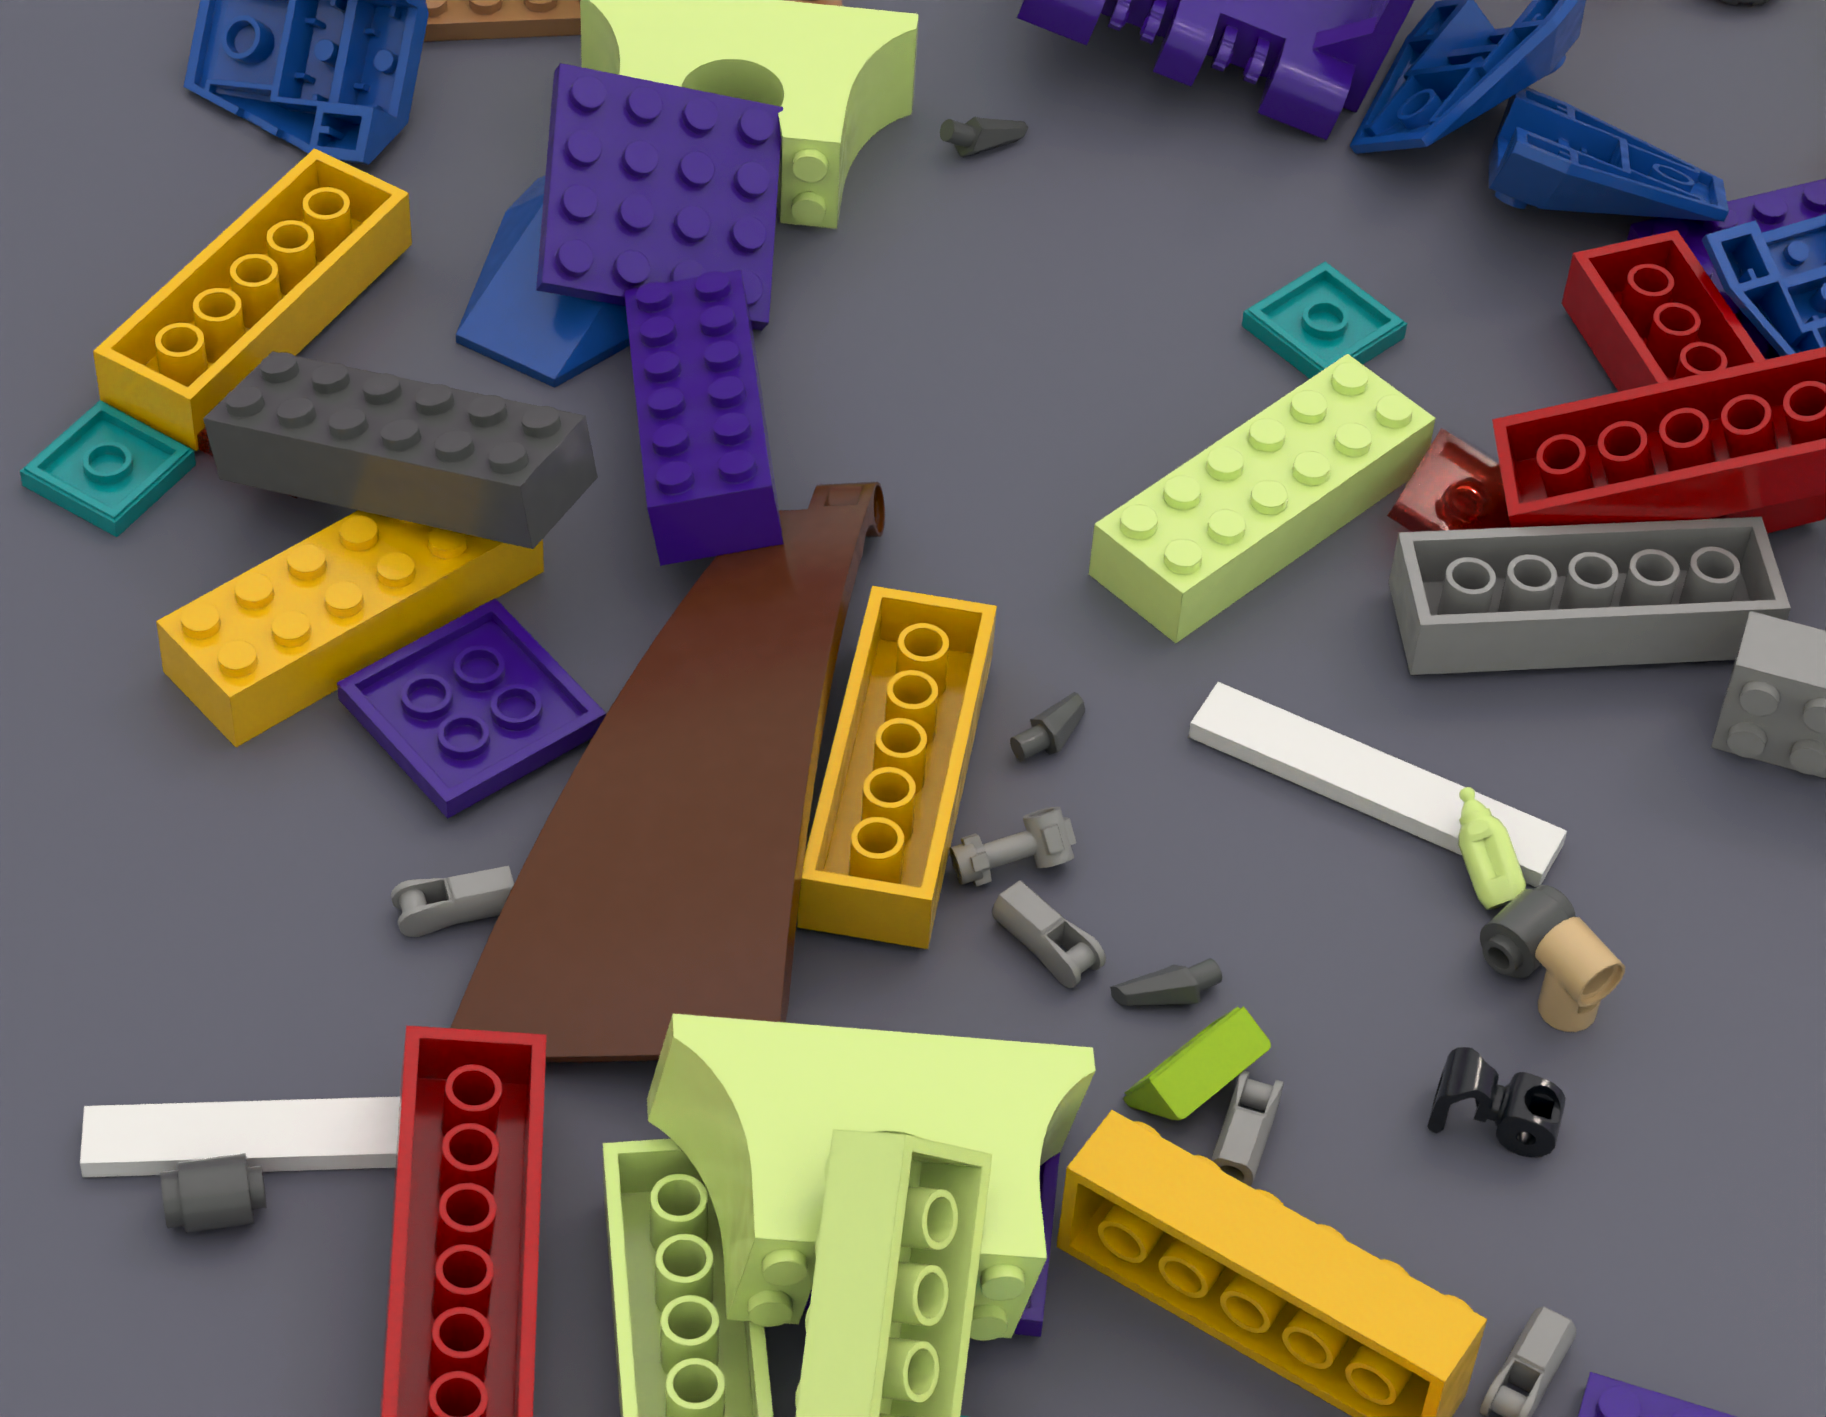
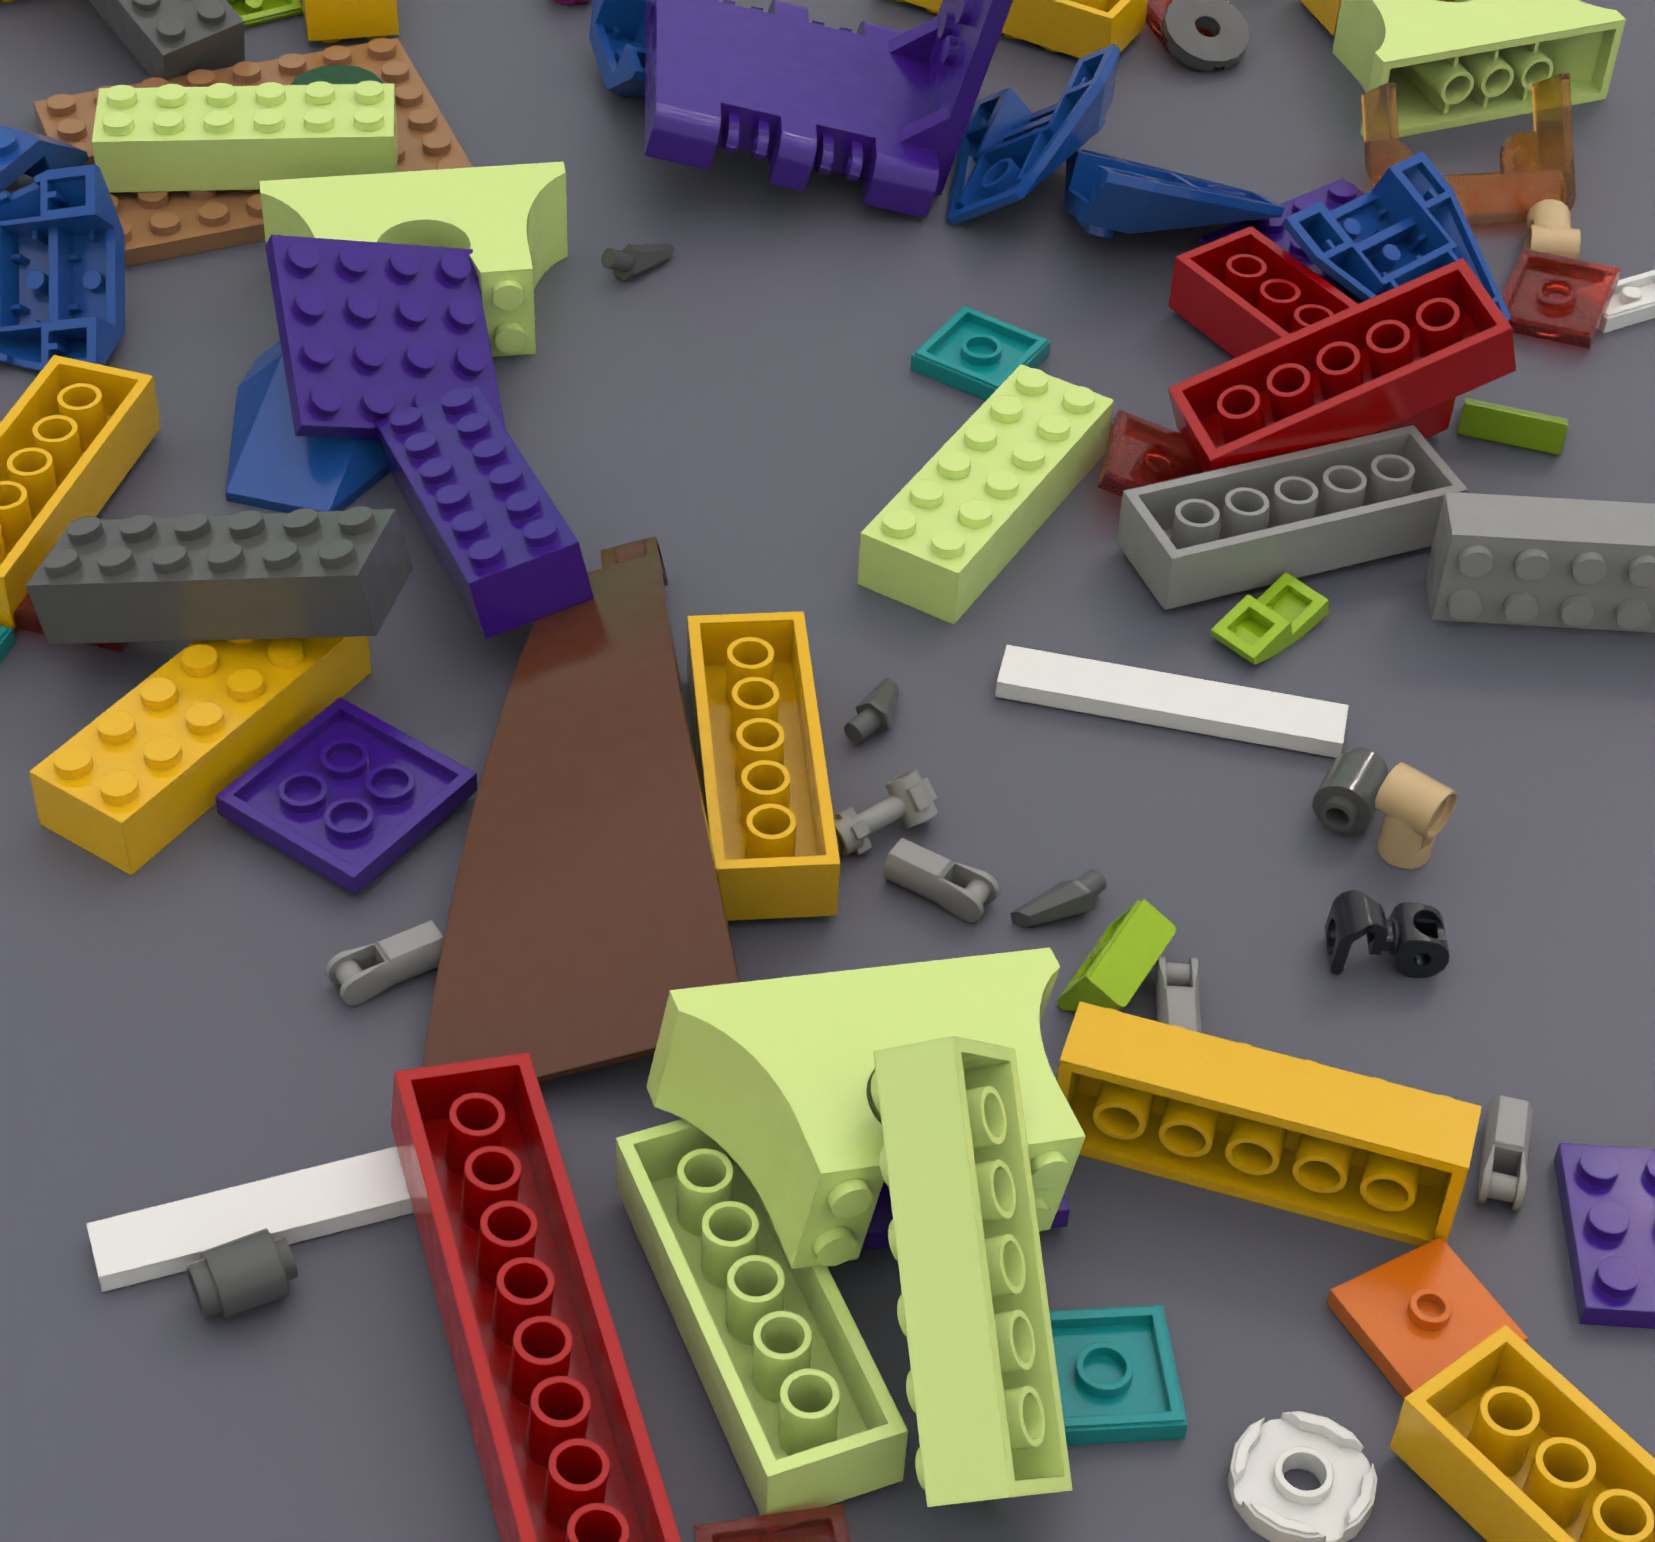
camera: 15 degrees left, 5 degrees down
(1488, 854) = (1294, 735): yellowish green piece -> none
(1519, 717) = (1273, 621): none -> lime slope

